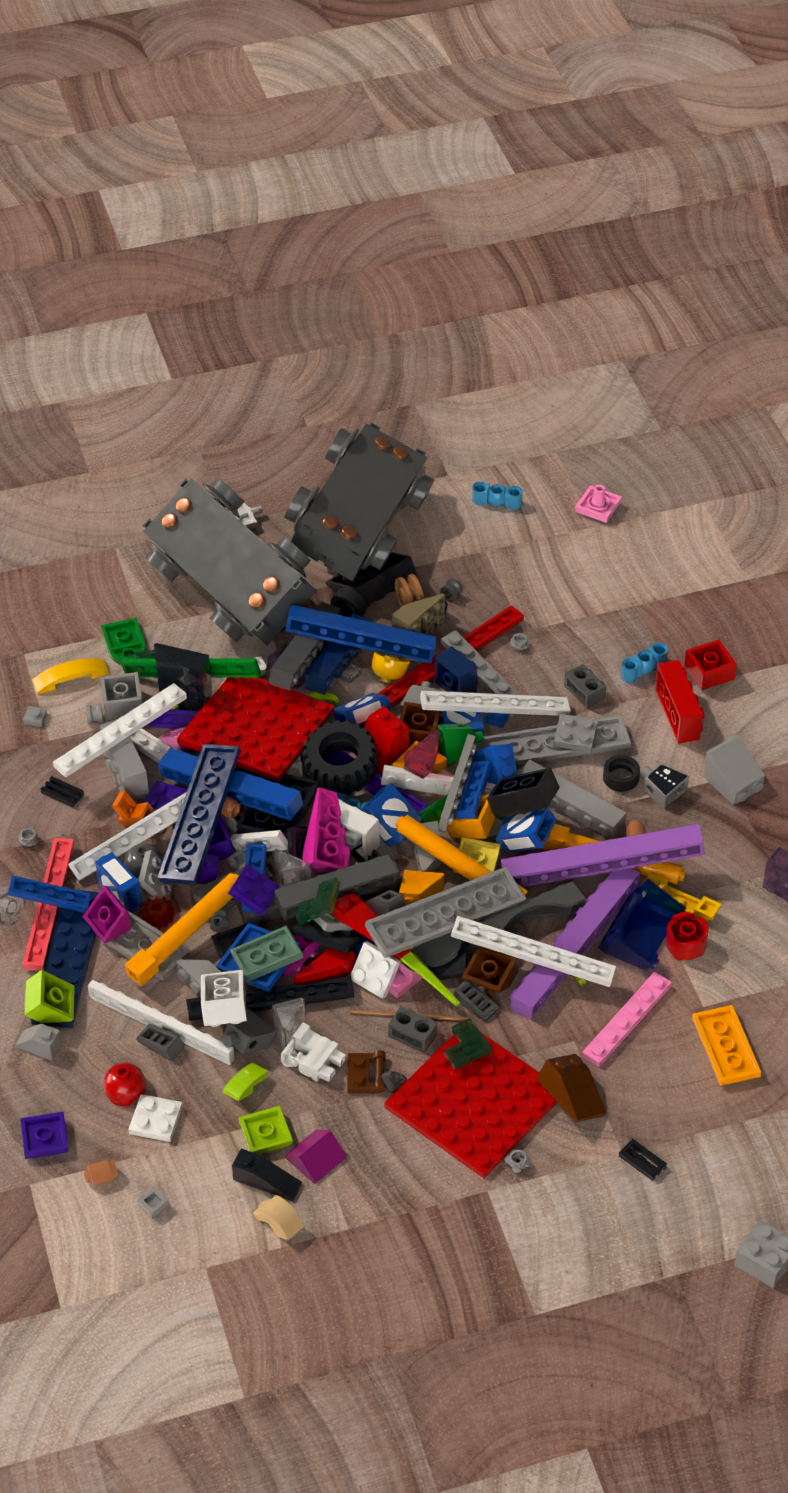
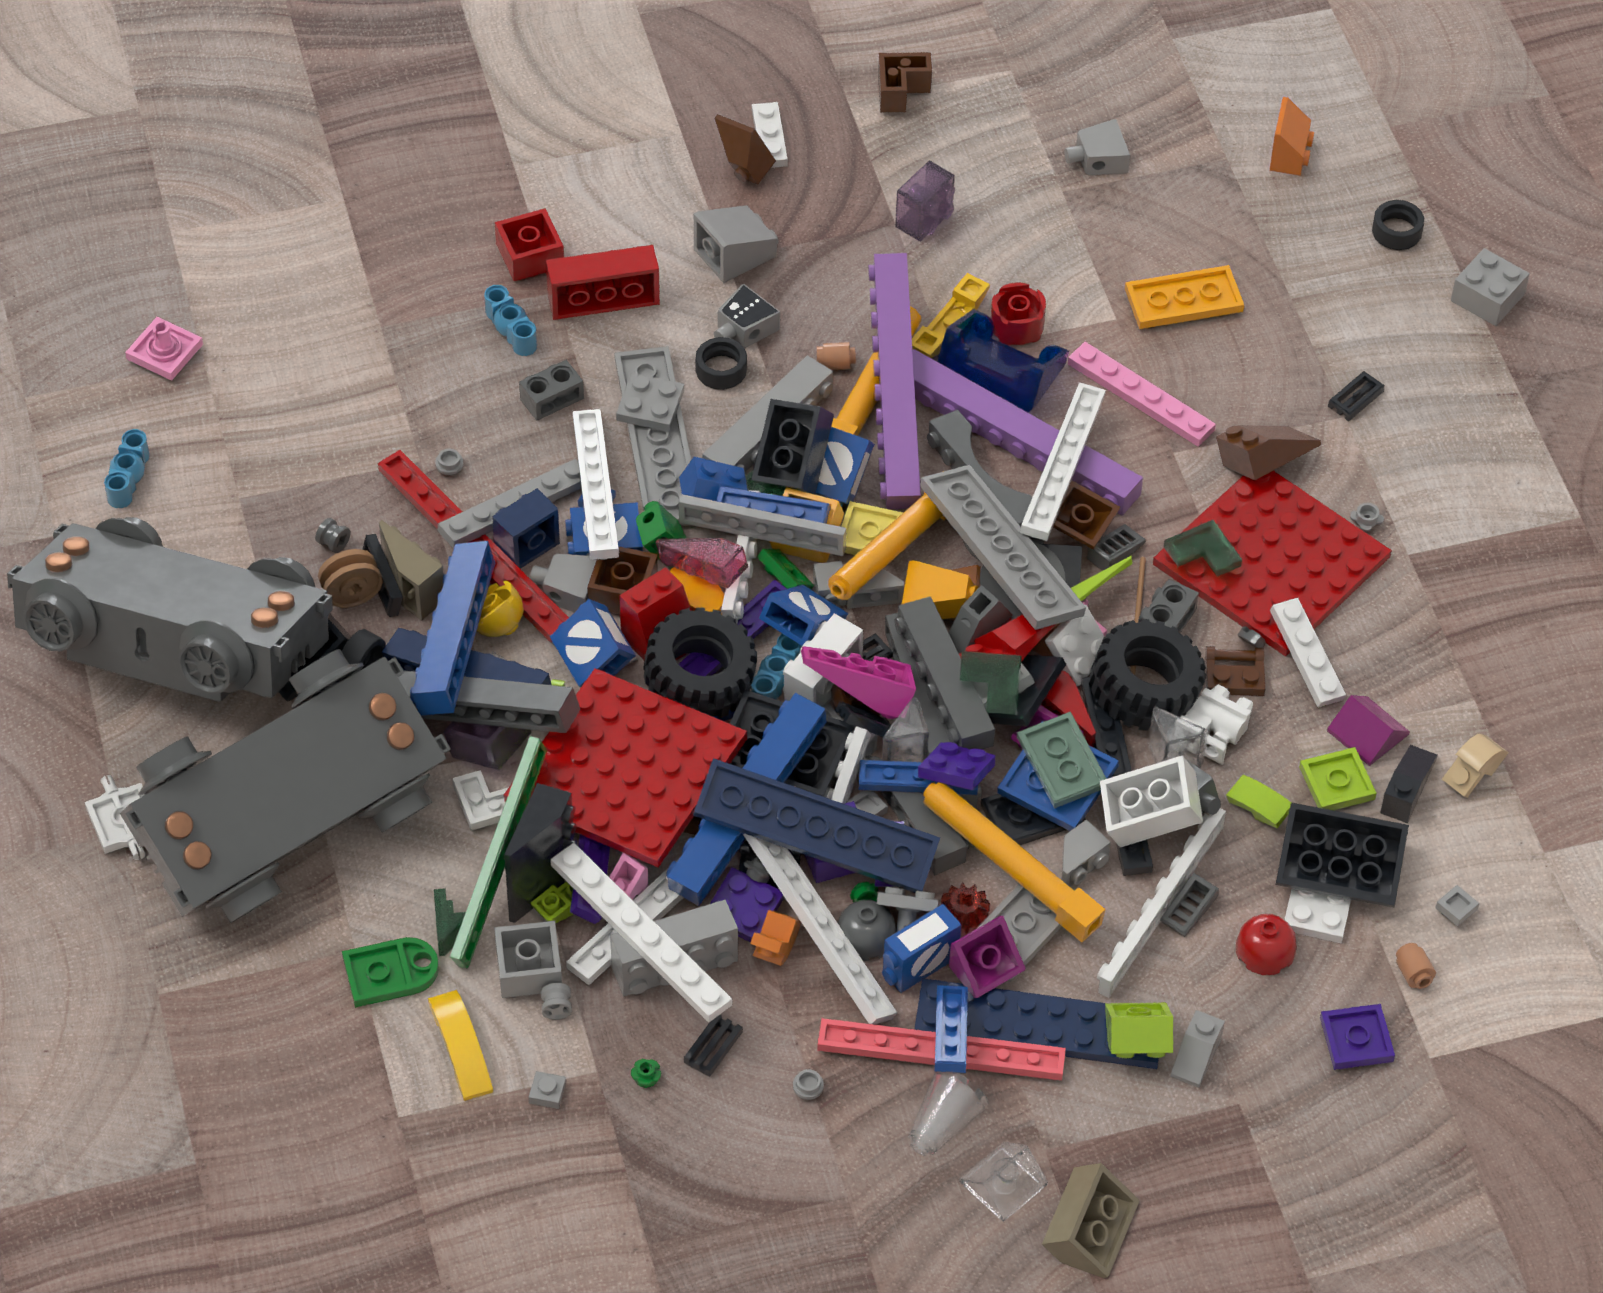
camera: 90 degrees left, 5 degrees up
(43, 760) = (646, 1079): none -> green plate
(190, 1125) = (1342, 855): none -> black slope
(346, 982) = (1152, 647): none -> black tyre
(379, 1112) = (1307, 652): none -> white plate

